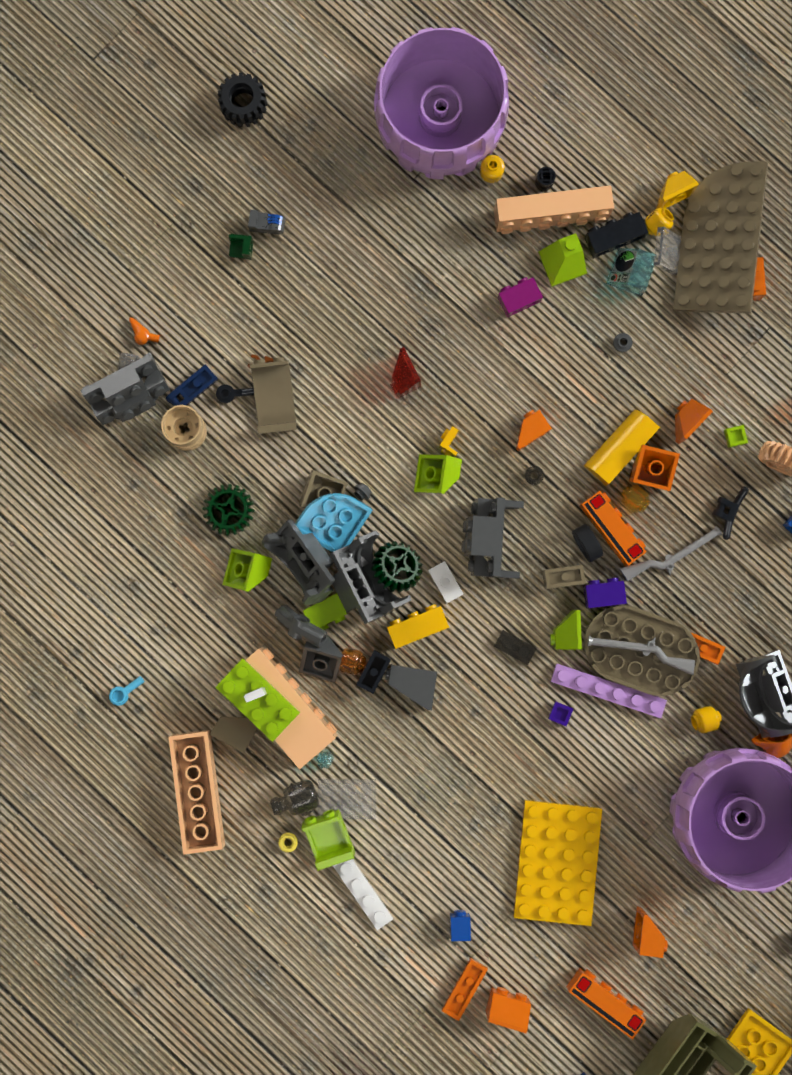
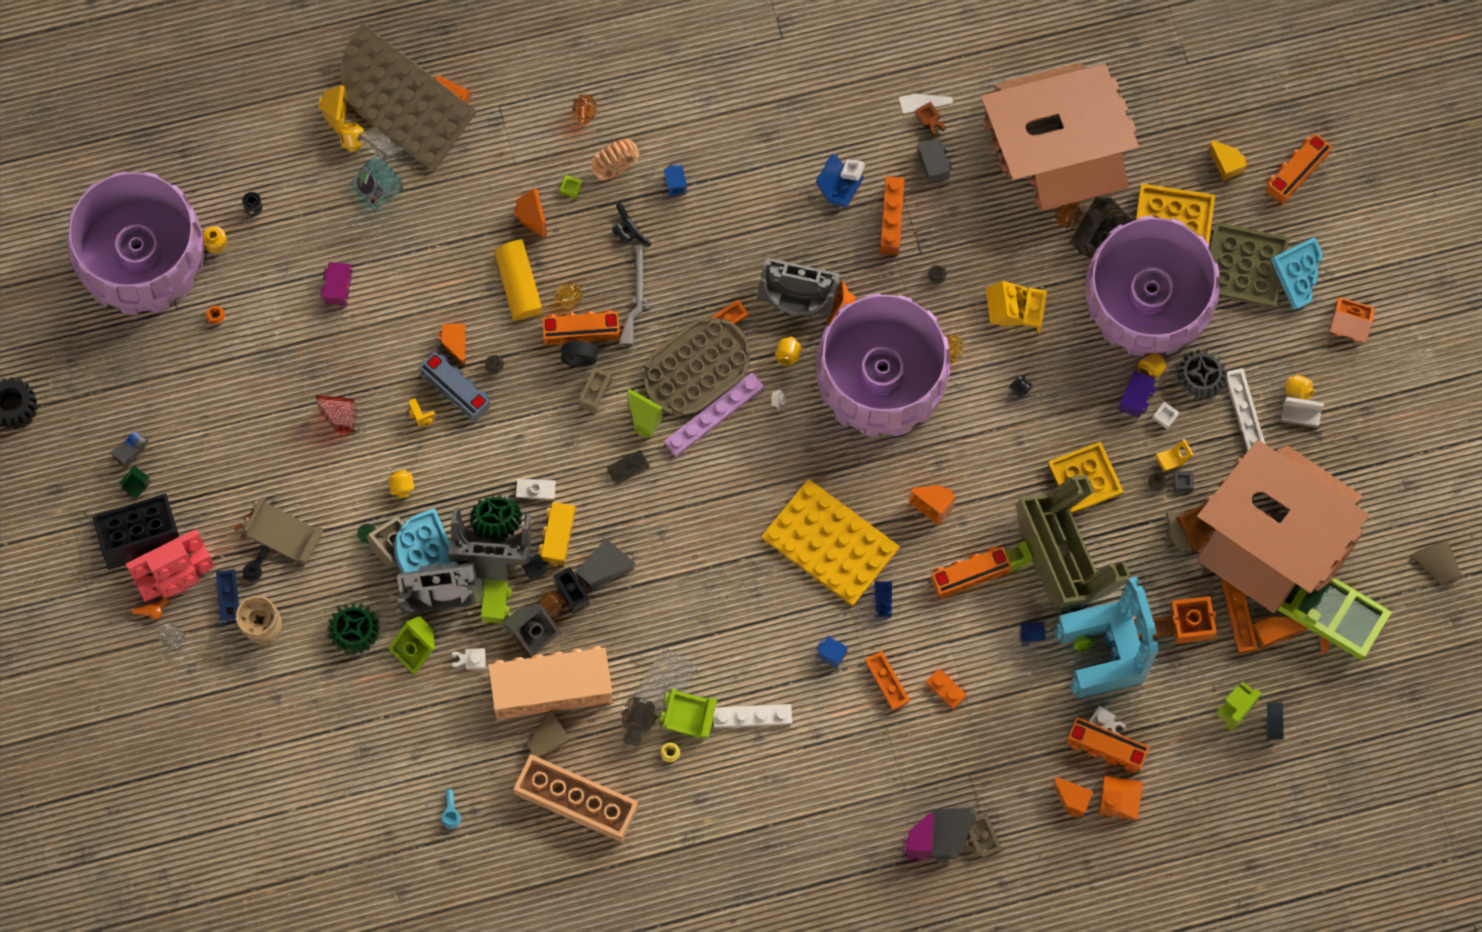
camera: 60 degrees left, 15 degrees down
(126, 391) = (194, 645): dark grey piece -> none
(181, 324) = (171, 567): none -> coral piece
(199, 276) = (135, 530): none -> black slope
(255, 694) = (524, 682): white tile -> none
(265, 624) = (473, 659): none -> white plate
(268, 713) = (531, 689): lime plate -> none
(300, 626) = (492, 625): dark grey piece -> none
(319, 464) = (363, 532): none -> clear green tile
(325, 759) = (619, 677): clear light blue plate -> none
(362, 491) = (413, 508): dark grey plate -> none
(376, 627) = (534, 568): none -> black plate
(377, 467) = (401, 483): none -> yellow head
(427, 208) = (215, 310): none -> orange plate
(436, 473) = (438, 439): lime slope -> none
(485, 537) = (518, 428): dark grey piece -> none
(489, 1043) = (946, 689): none -> orange plate
(492, 454) = (455, 386): none -> sand blue brick
(508, 1009) = (924, 653): orange slope -> none
(534, 941) = (883, 599): none -> clear blue leg
(553, 209) = (283, 212): light nougat brick -> none
(560, 713) = (707, 463): dark purple plate -> none
(563, 260) = (330, 230): lime slope -> none
(604, 594) = (631, 367): dark purple brick -> none
(616, 234) = (338, 177): black brick -> none
(622, 348) = (432, 231): dark grey plate -> none
(649, 1036) = (1020, 556): none -> lime panel
(654, 467) = (553, 263): orange slope -> none
(657, 738) = (778, 399): none -> white plate
(684, 665) = (728, 339): light grey piece -> none

